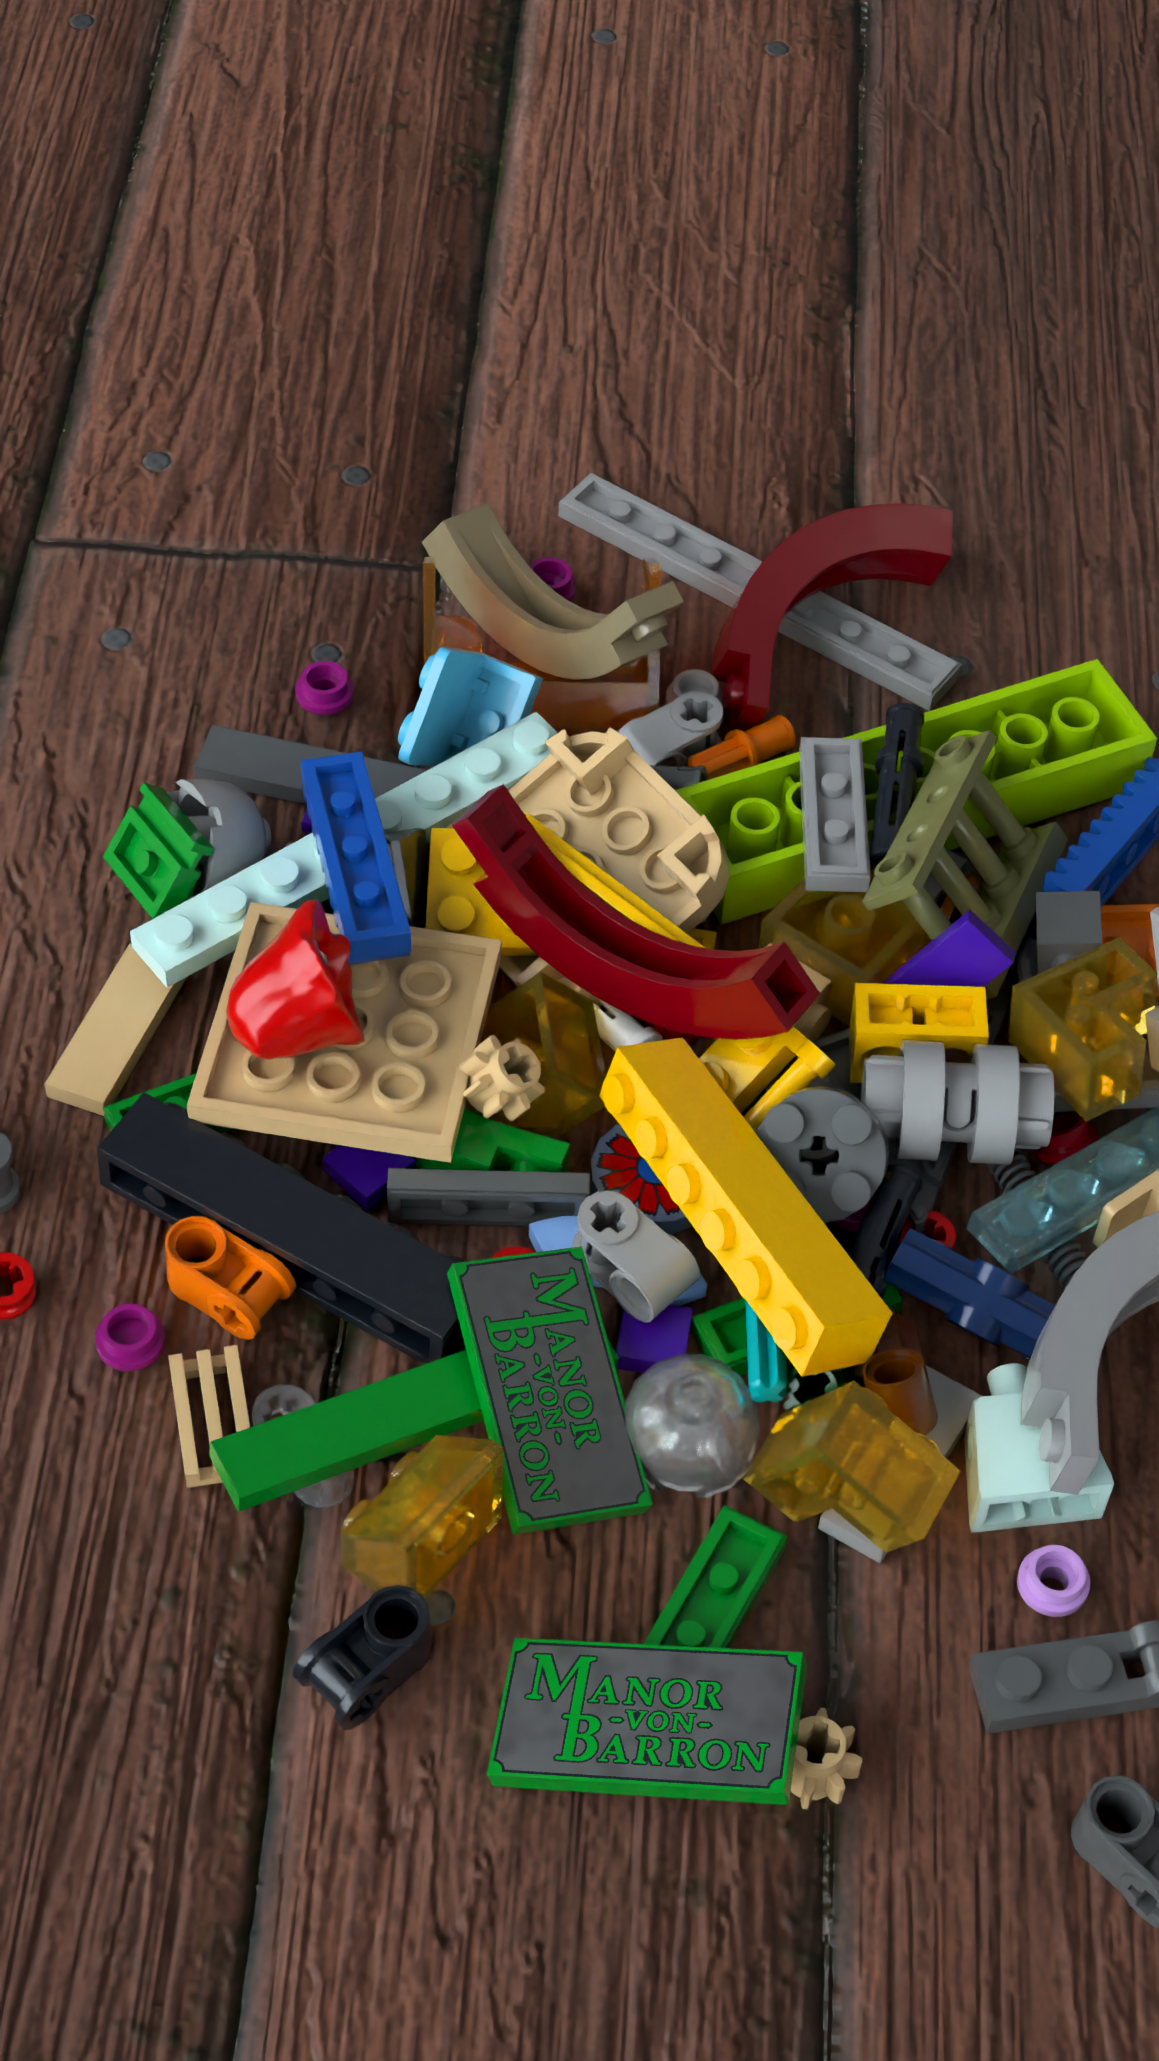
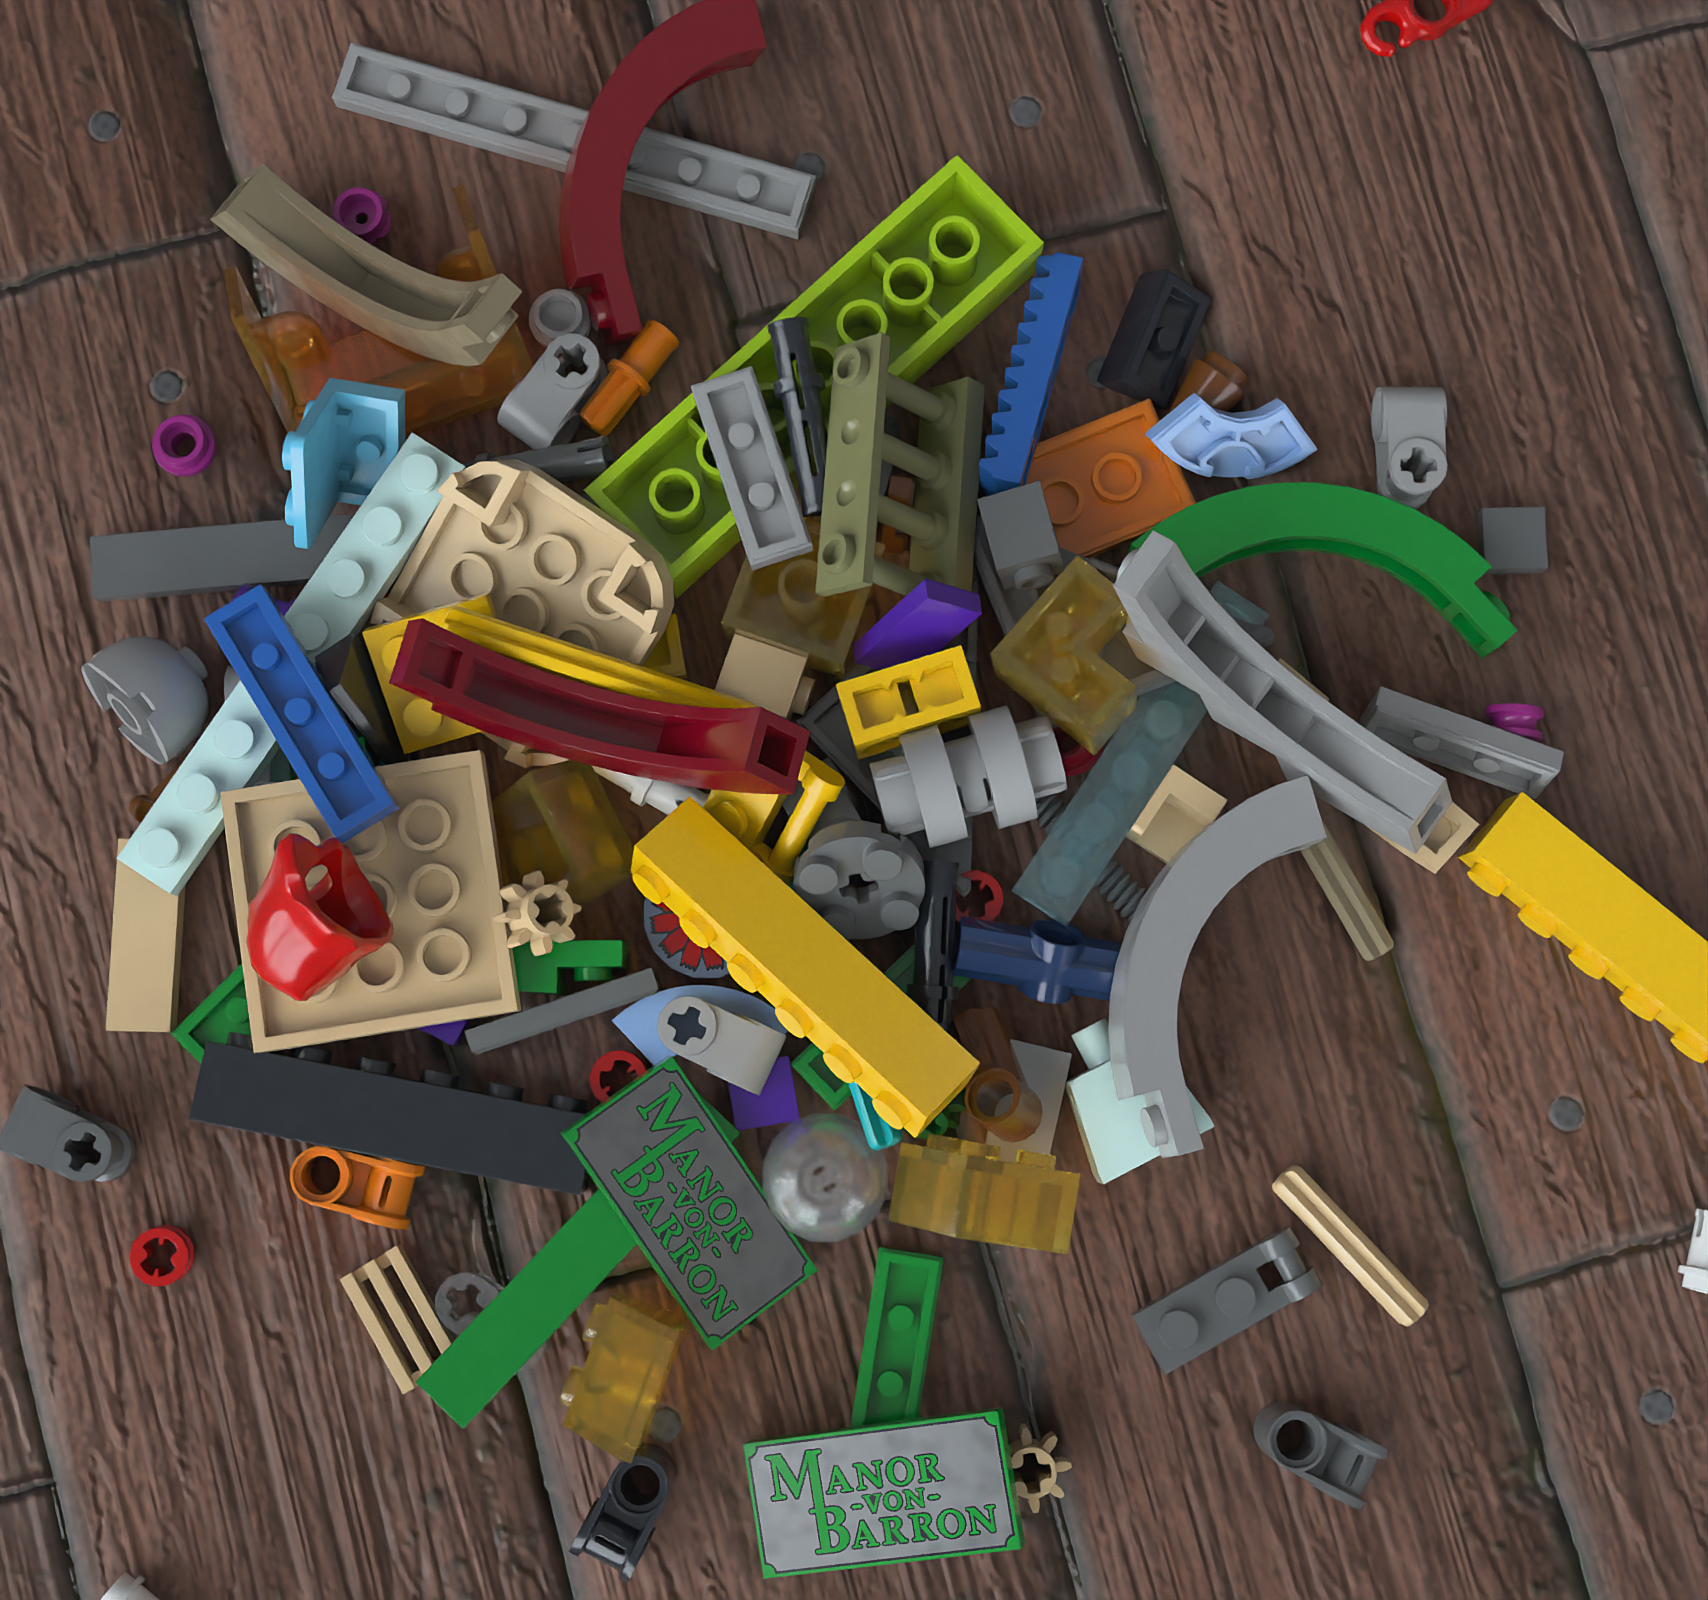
camera: 15 degrees left, 30 degrees up
(129, 1337) = (298, 1270): magenta plate -> none
(157, 852) = (103, 737): green plate -> none
(1055, 1563) = (1202, 1215): lavender plate -> none

